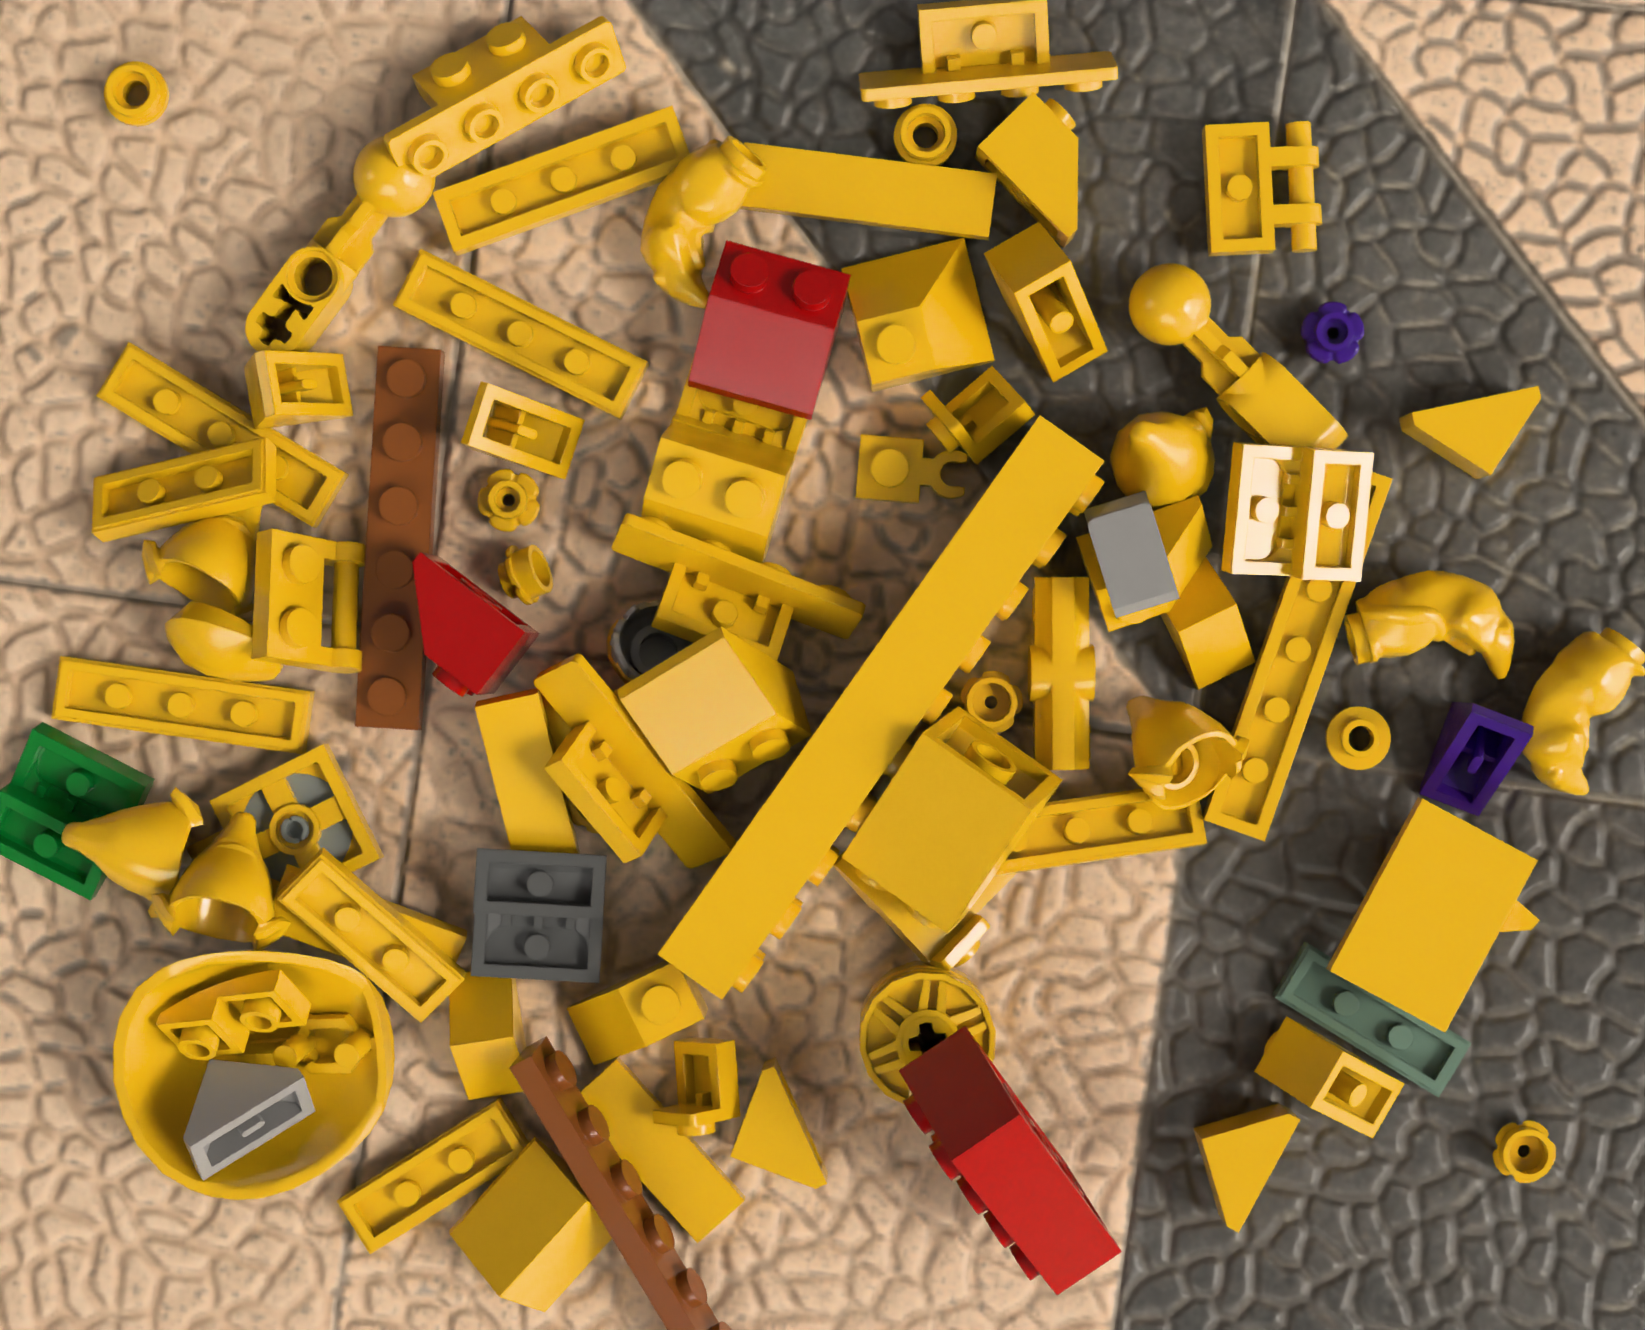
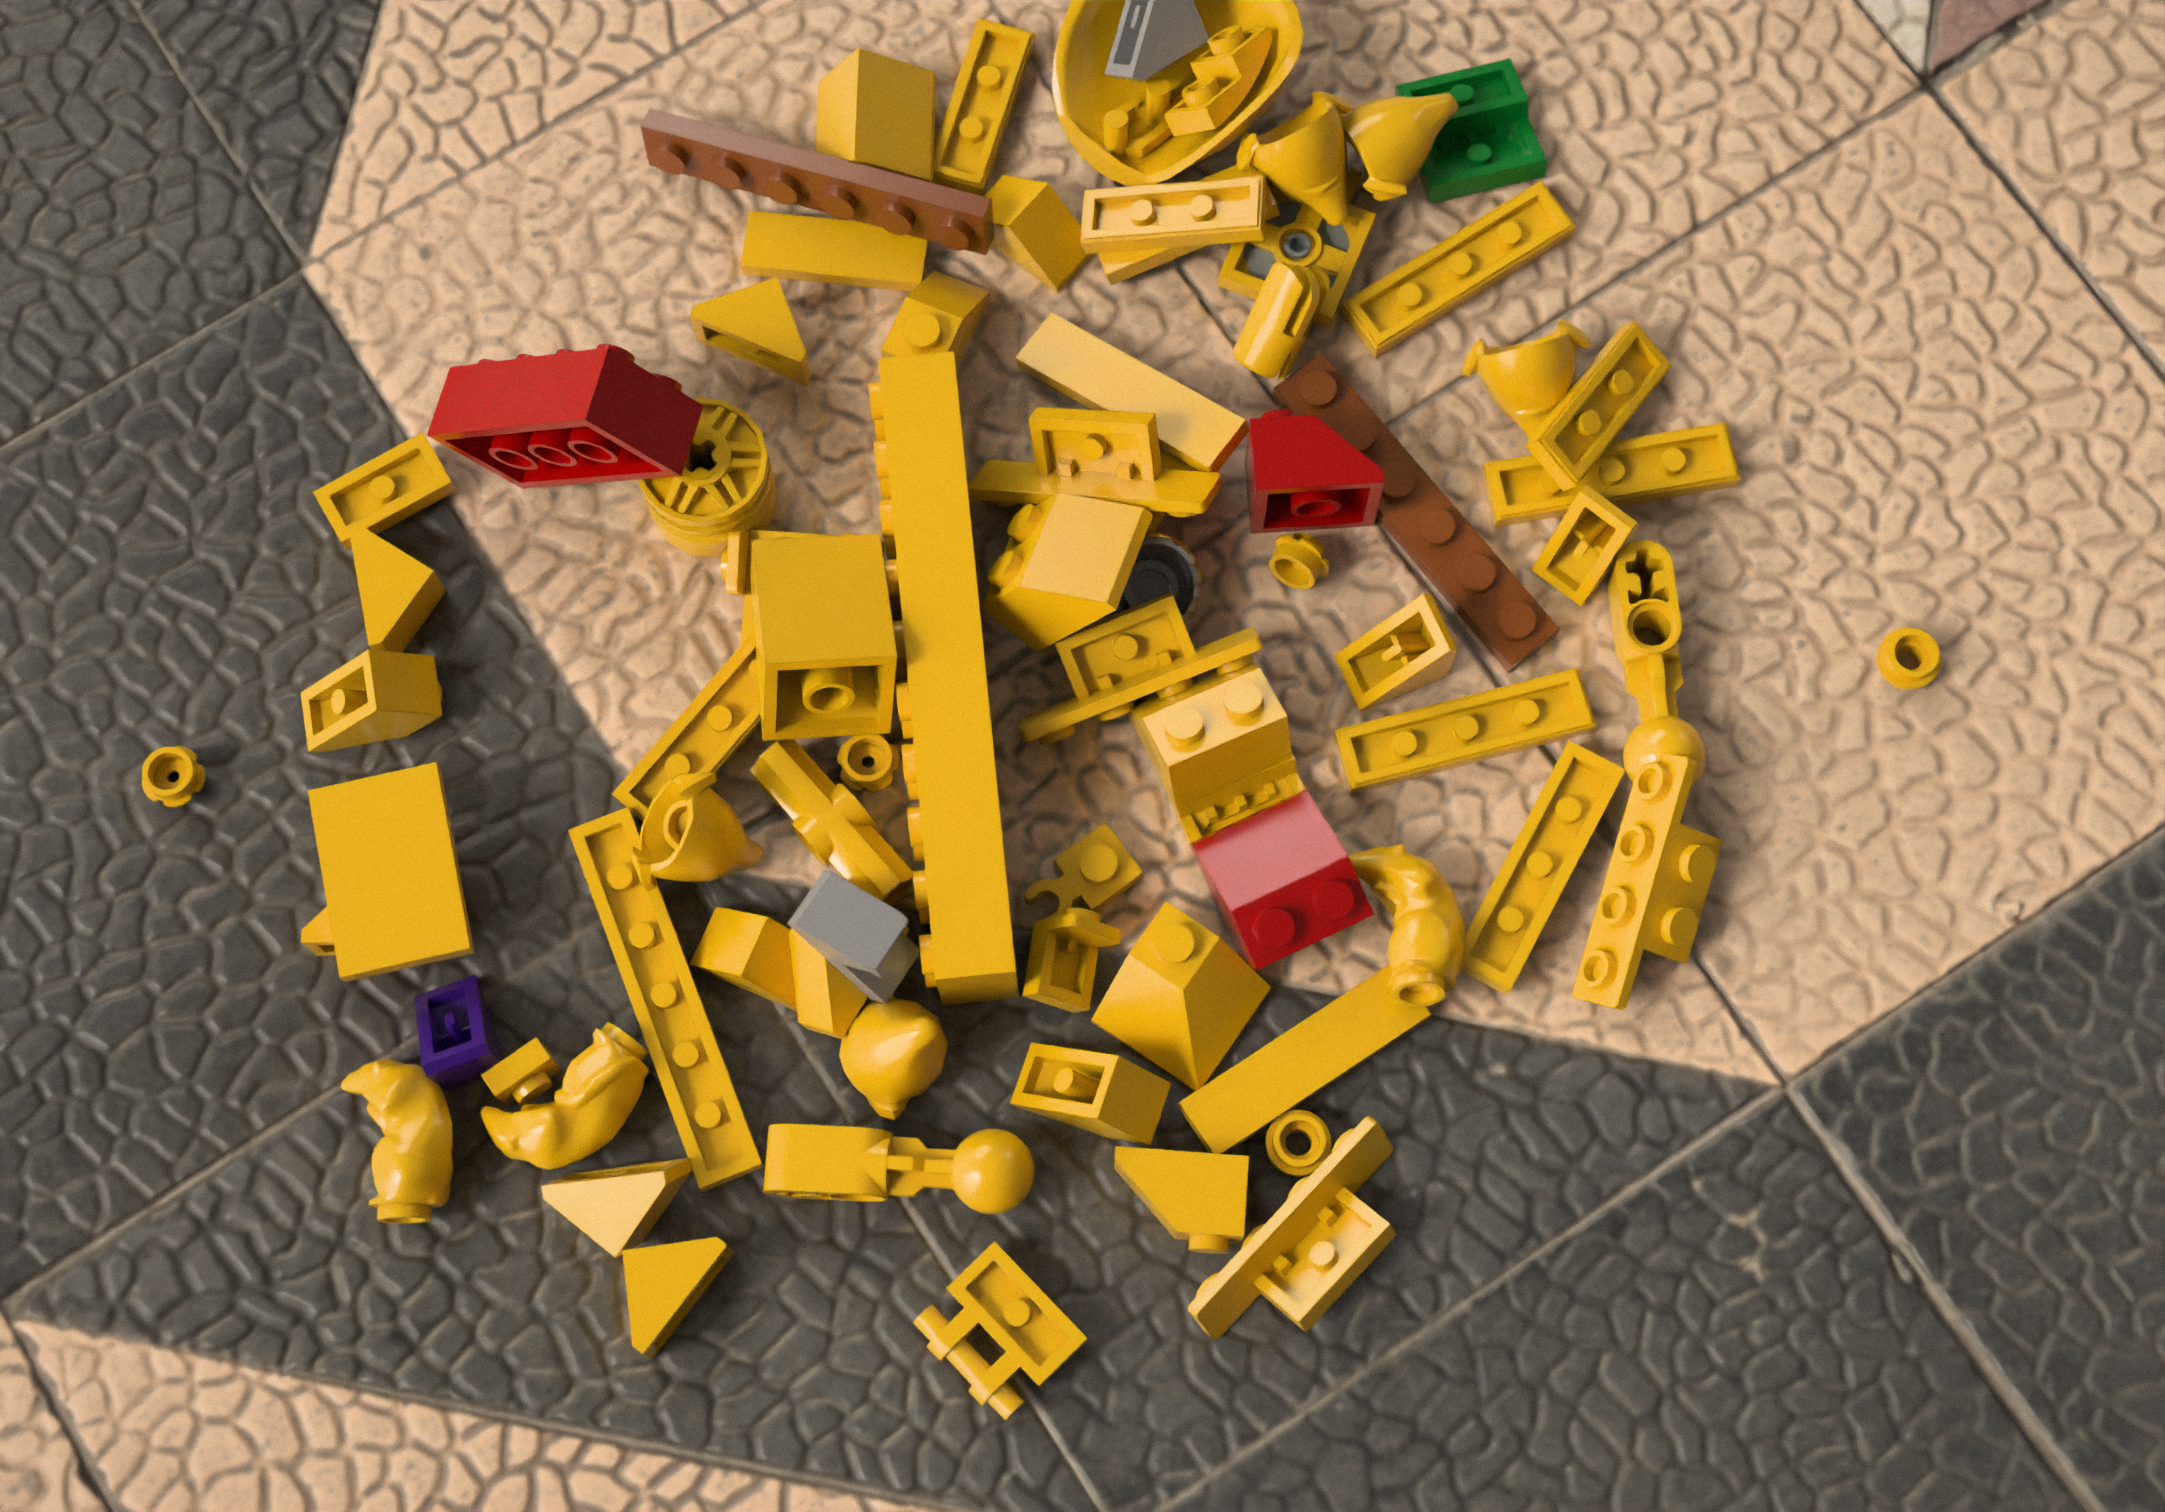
camera: 140 degrees right, 15 degrees down
(217, 644) = (1469, 318): yellow hat -> none
(291, 601) = (1449, 390): yellow plate -> none
(367, 773) = (1281, 319): none -> yellow arm
(505, 517) = (1357, 618): yellow plate -> none
(538, 915) = (1066, 327): dark grey slope -> none
(704, 1086) = (836, 315): yellow bracket -> none
(1179, 1249) = (385, 489): none -> yellow plate
(1297, 511) = (753, 1090): yellow slope -> none
(1315, 335) = (857, 1279): dark purple plate -> none
(1338, 738) = (571, 987): yellow plate -> none
(1370, 1023) = (321, 769): sand green tile -> none
(1451, 677) = (522, 1074): none -> yellow plate
(1461, 524) = (618, 1202): none -> yellow slope

